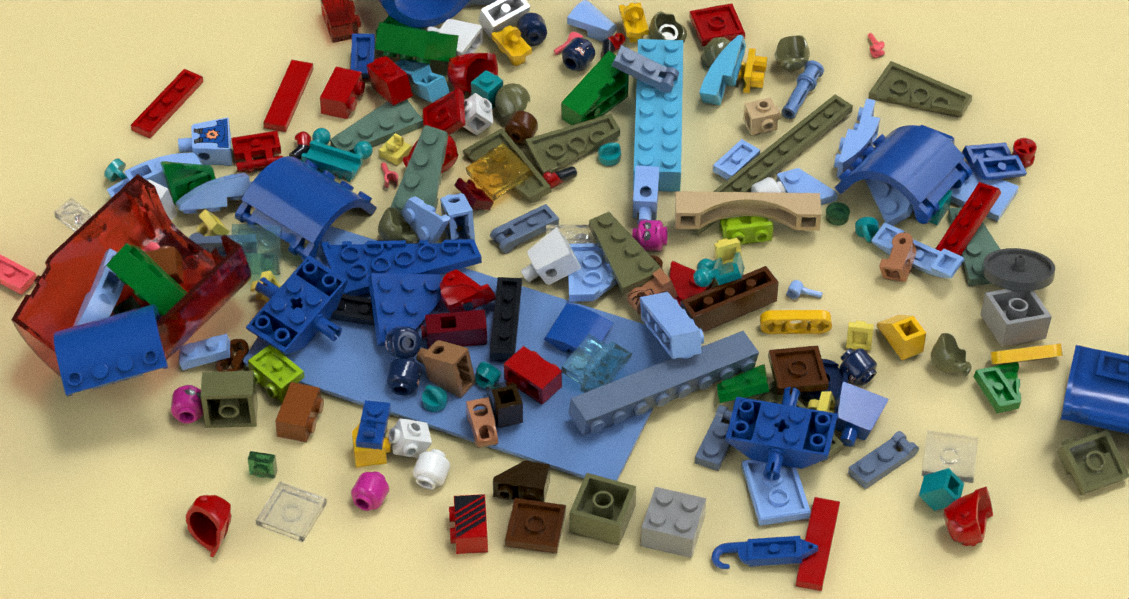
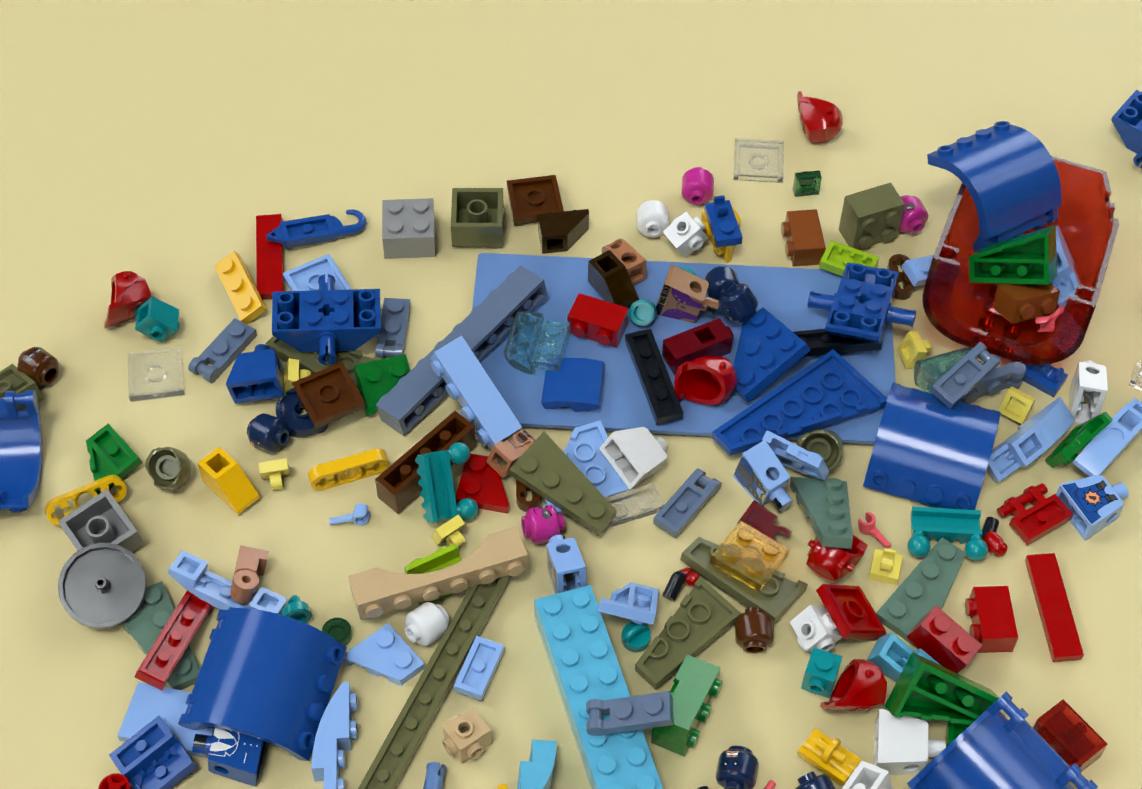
camera: 160 degrees right, 5 degrees up
(256, 211) = (964, 375): none -> sand blue plate
(362, 52) = (1000, 677): blue plate -> none
(470, 524) = (594, 182): red brick -> none
(511, 99) = (783, 666): olive hair -> none
(604, 159) = (632, 602): none -> light blue wing
(854, 513) = (240, 287): none -> yellow plate
(1059, 478) = (38, 365): none -> reddish brown head

